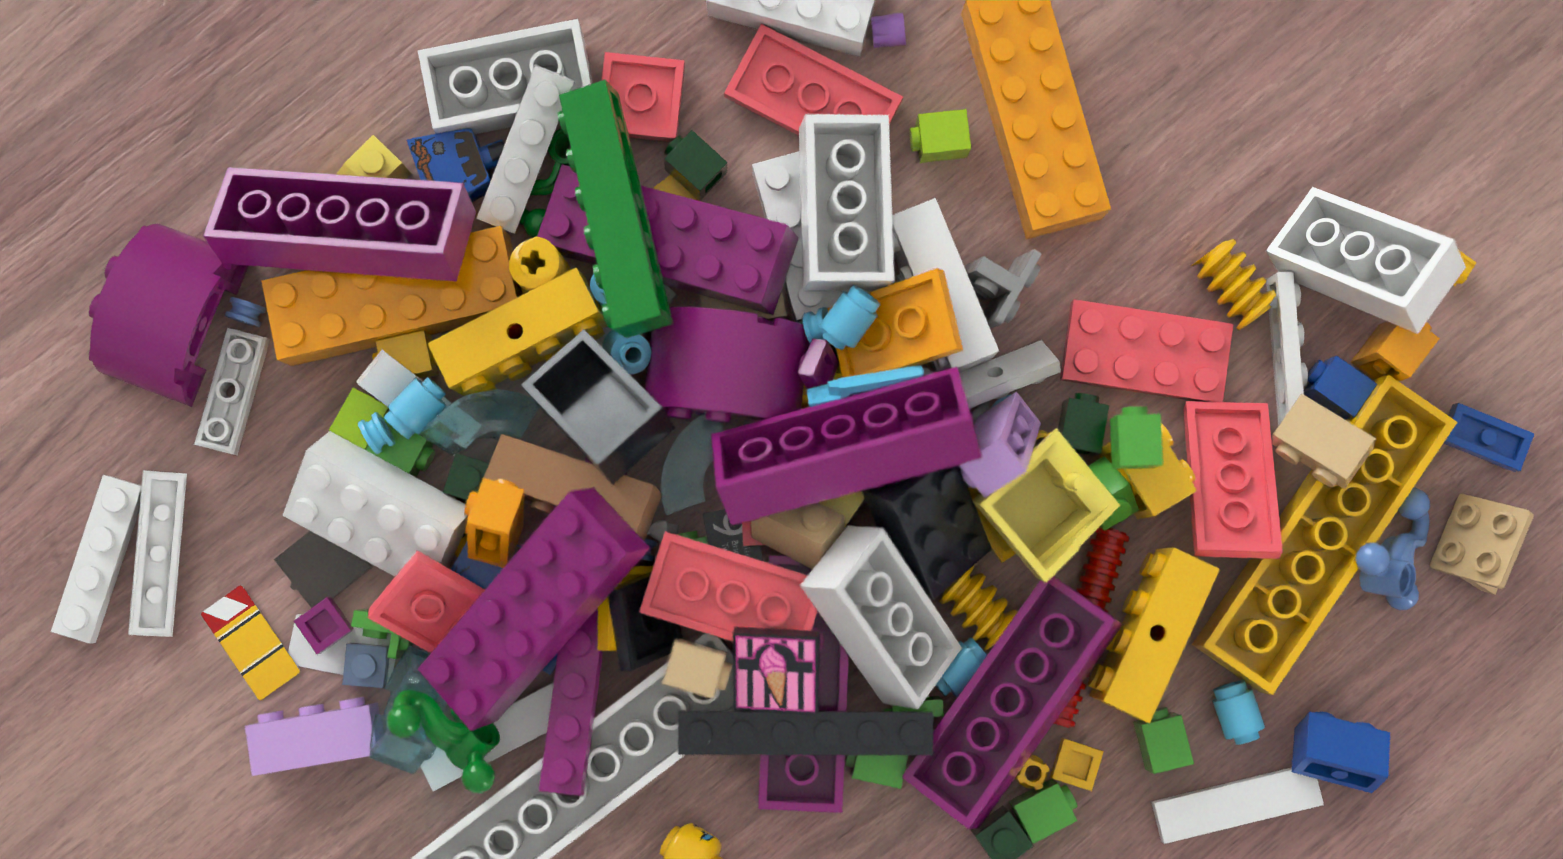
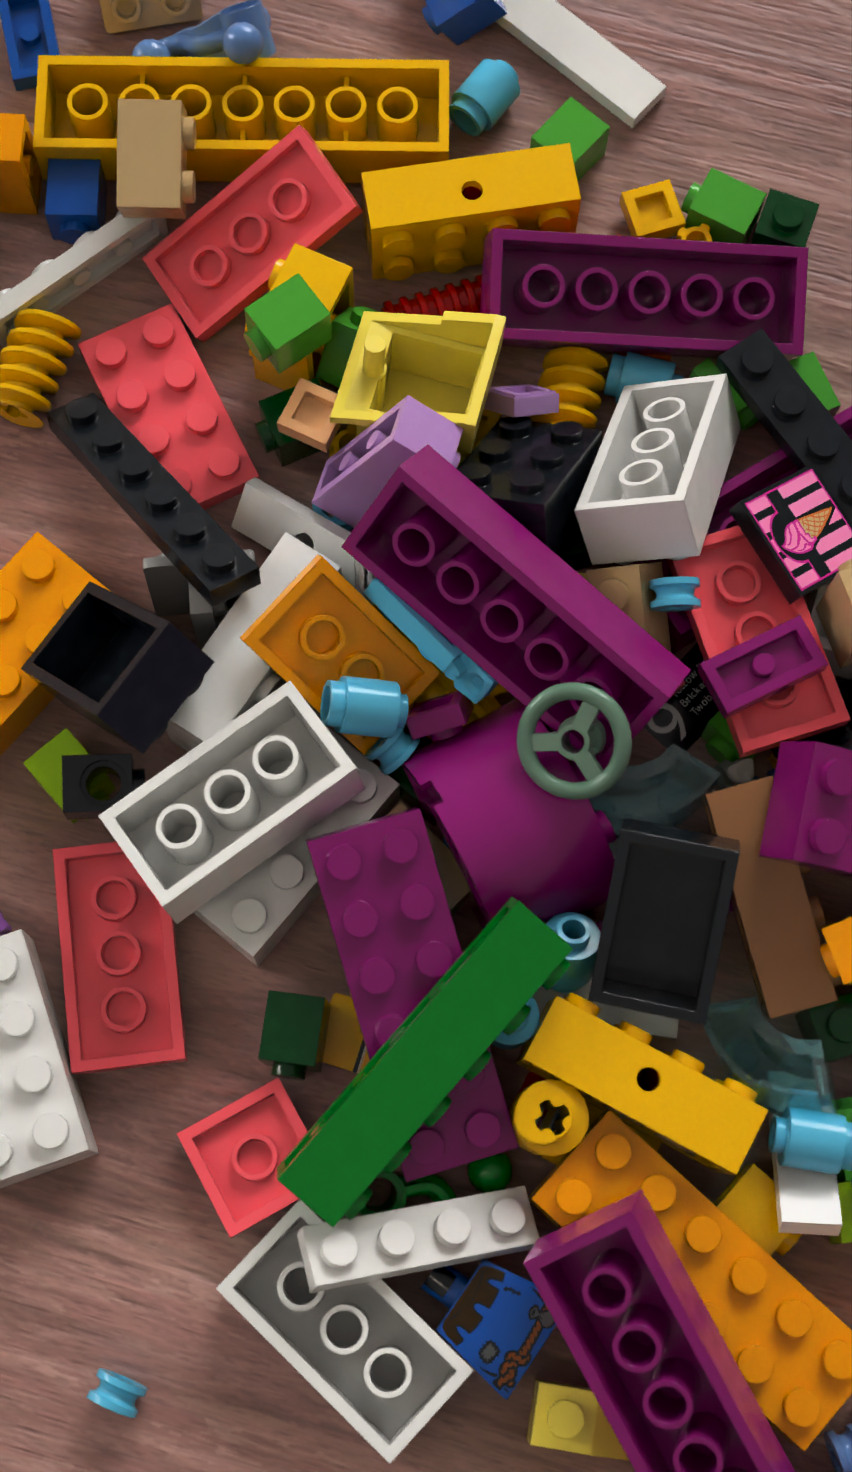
camera: 125 degrees left, 10 degrees down
(706, 577) = (762, 666): none -> magenta plate
(736, 436) = (594, 740): none -> sand green piece
(789, 557) = (674, 594): none -> medium azure bush
(921, 123) = (80, 771): none -> black brick
(978, 189) = (118, 666): none -> black piece
(991, 566) = (522, 400): none -> lavender tile
(1074, 425) = (308, 415): none -> light nougat plate
(1082, 290) = (154, 500): none -> black plate

